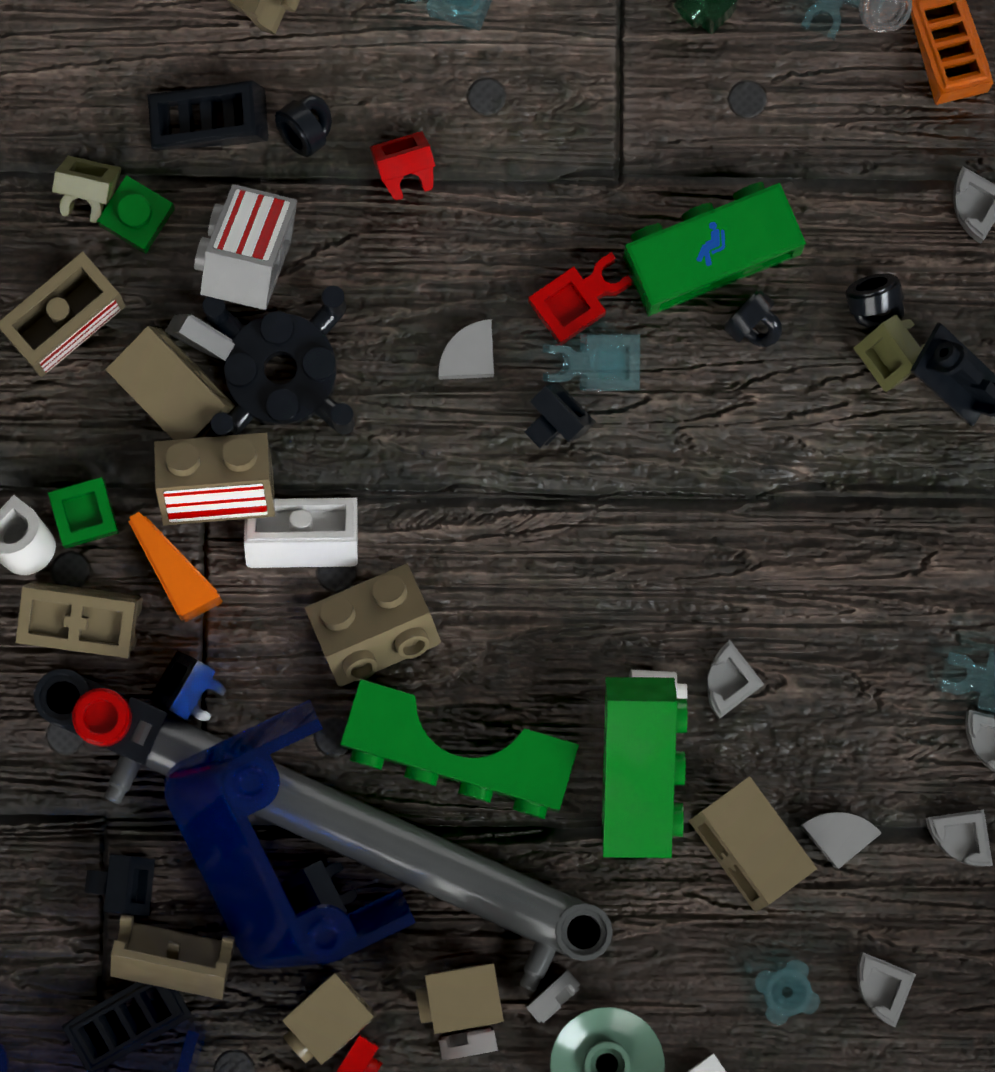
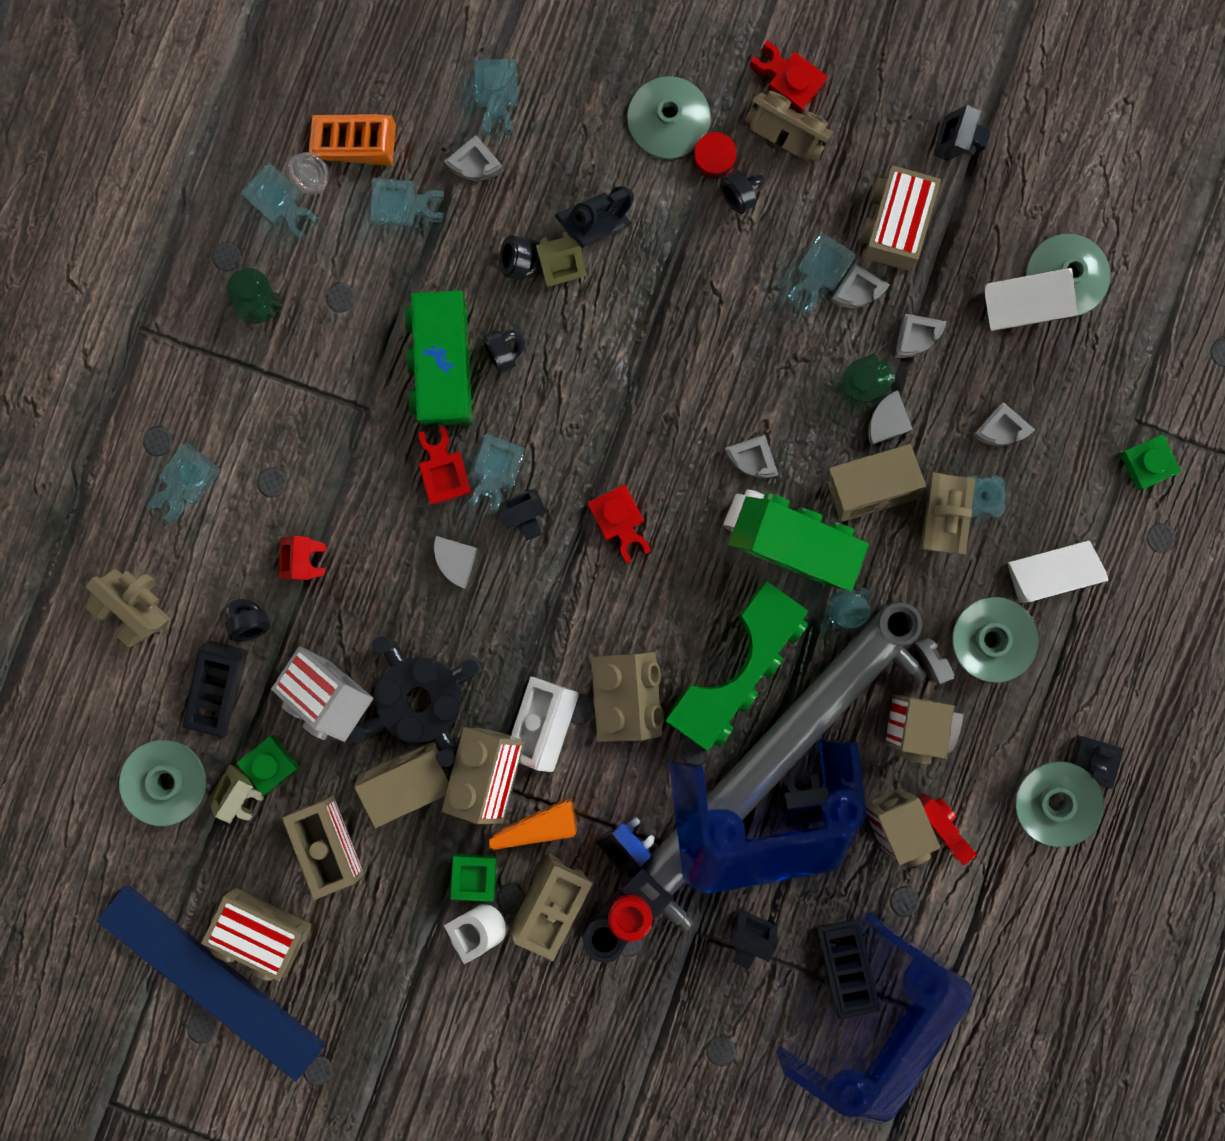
camera: 65 degrees left, 5 degrees up
(67, 69) = (143, 788): none -> sand green dish
(171, 958) = (814, 922): dark tan hinge -> none
(200, 336) = (374, 749): light grey tile -> none
(583, 867) = (850, 608): none -> clear light blue plate
(595, 536) = (618, 516): none -> red plate
(745, 947) = (948, 513): none -> dark tan hips
(878, 787) = (865, 381): none -> clear green plate
(887, 126) = (396, 204): none -> clear light blue plate

